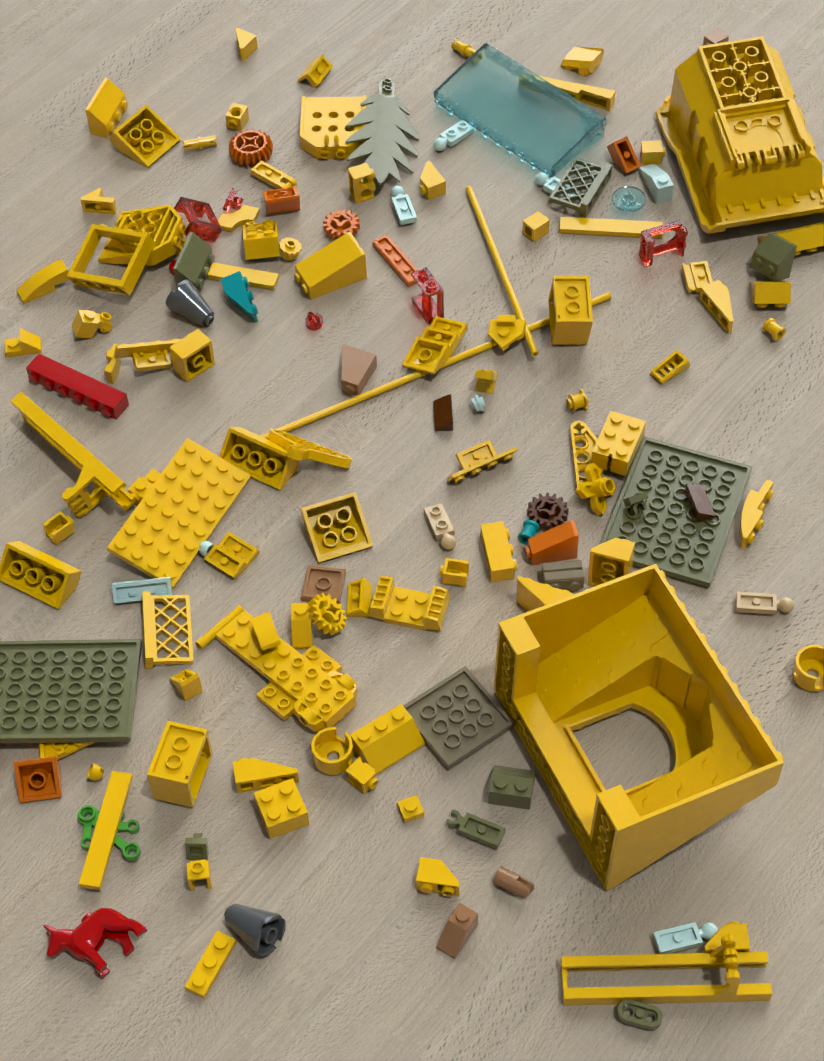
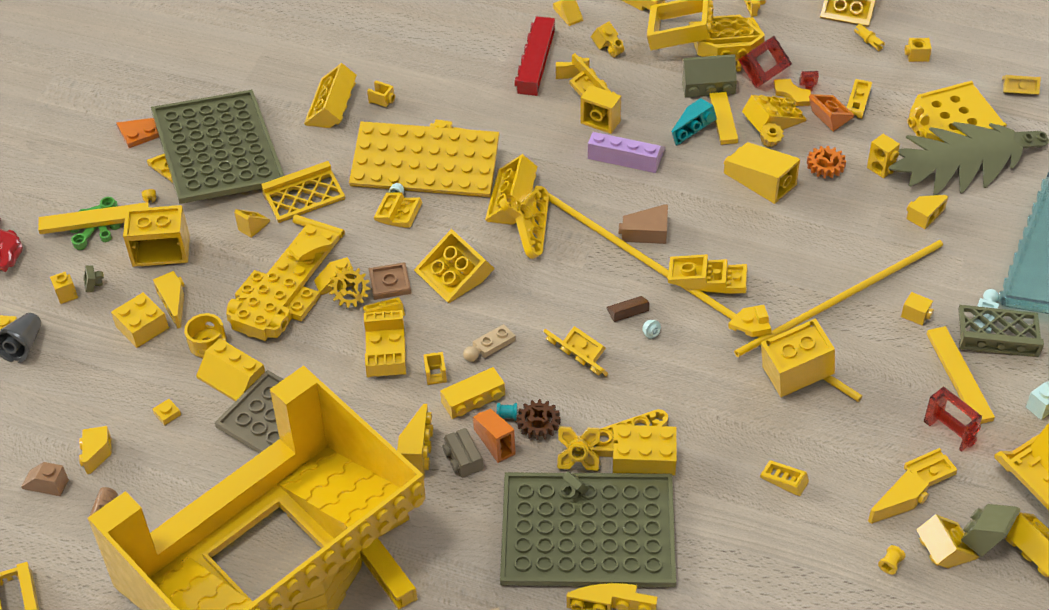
camera: 70 degrees right, 5 degrees down
(38, 779) = (131, 164): orange slope -> none
(91, 468) = (418, 88): yellow piece -> none
(132, 590) = (338, 163): light aqua plate -> none
(190, 303) = (663, 89): dark grey cone -> none
(246, 43) = (1018, 25): yellow slope -> none
(250, 147) = (885, 70): orange gear -> none
(250, 357) = (625, 152): none -> lavender slope
(314, 321) = (695, 181): clear red tile -> none
(362, 776) = (187, 364): yellow window -> none
(395, 259) = (807, 218): orange tile -> none
(403, 206) = (880, 199): light aqua plate -> none
(424, 302) = (761, 251): clear red panel -> none
(453, 135) = (1005, 209): light aqua plate -> none
(477, 829) = (154, 465): olive plate -> none
(486, 380) = (687, 325): yellow slope -> none
(511, 787) = (204, 472): olive slope -> none
(577, 401) = (693, 406): yellow brick -> none
(610, 561) = (478, 482): yellow slope -> none
(628, 198) = (1008, 376): clear light blue dish -> none
(699, 502) = (600, 542): slope -> none

